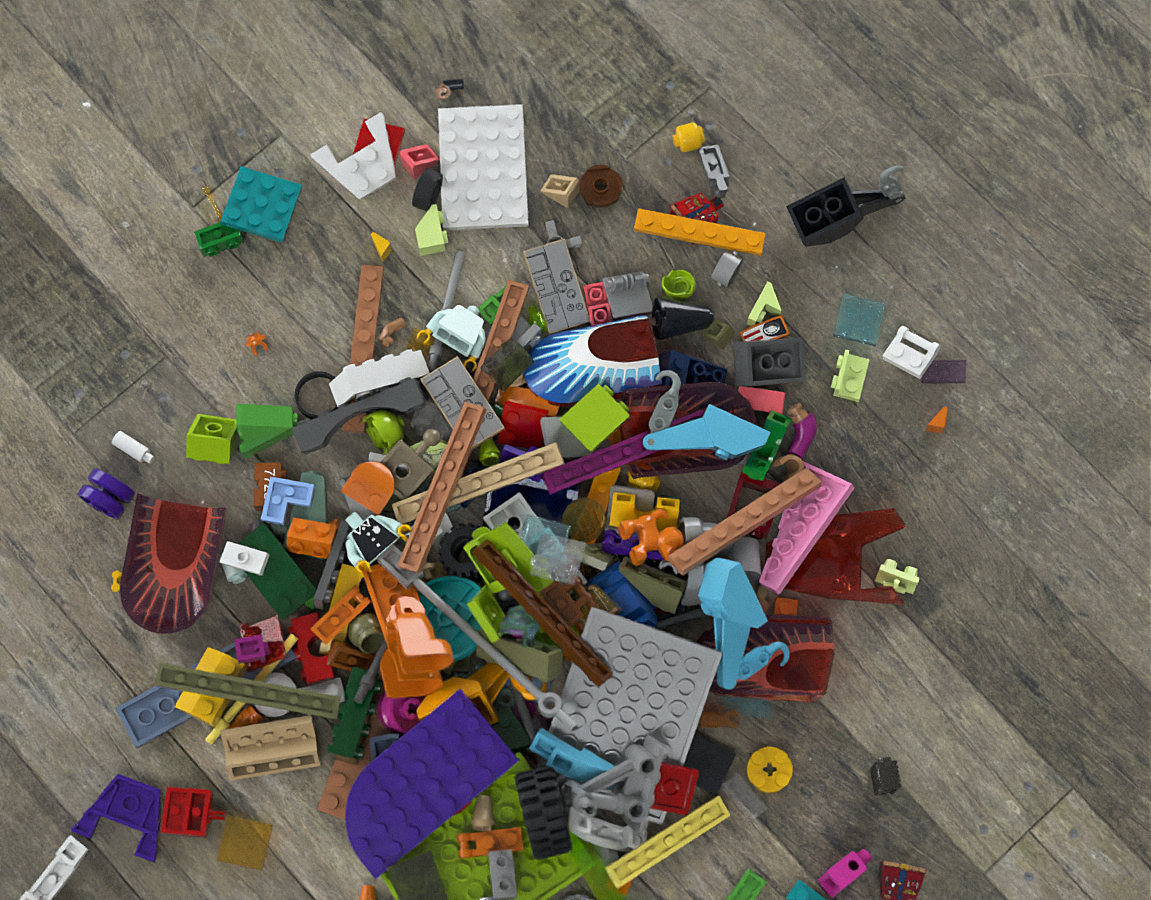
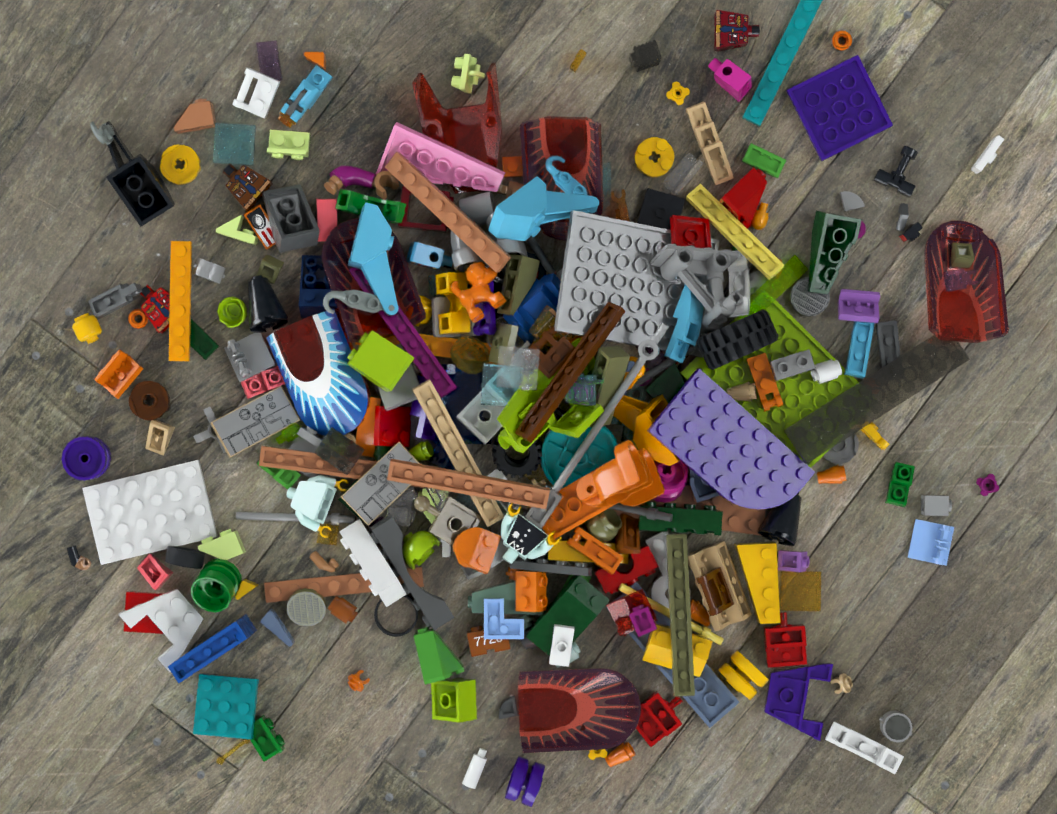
camera: 105 degrees left, 15 degrees up
(110, 606) = (621, 754): none -> orange cone
(129, 871) = (845, 683): none -> tan plate
(140, 652) = (658, 718): none -> red plate
(164, 755) = (743, 675): none -> yellow wheel
(189, 495) = (508, 708): none -> dark grey tile
(265, 743) = (715, 591): none -> reddish brown plate
(270, 798) = (761, 577): none -> yellow wedge
(280, 839) = (793, 561): none -> medium lavender bracket
(325, 195) = (212, 648): none -> blue window
(327, 834) = (782, 522): none -> black cone
(333, 270) = (276, 626): none -> sand blue slope
(336, 341) = (343, 609): none -> dark orange brick
(347, 303) = (306, 607): none -> tile
(390, 214) = (216, 585): none -> green wheel
(552, 112) = (78, 466): none -> dark purple wheel
(635, 160) = (119, 373): none -> orange bracket
(654, 248) = (201, 341): none -> dark green plate
(679, 877) = (761, 217): none -> light orange cylinder
(689, 185) = (132, 318): none -> orange plate
(705, 489) = (419, 255): none -> dark azure torso
(706, 862) = (745, 196): none -> red slope
(774, 835) = (709, 143): none -> tan slope
(812, 323) = (246, 185): none -> torso
(831, 809) = (679, 99): none -> yellow plate
(850, 250) = (182, 153): none -> yellow plate
(894, 286) = (196, 117): none -> nougat slope
(895, 706) = (580, 56): none -> clear yellow tile
(899, 400) = (304, 96): none -> medium azure plate

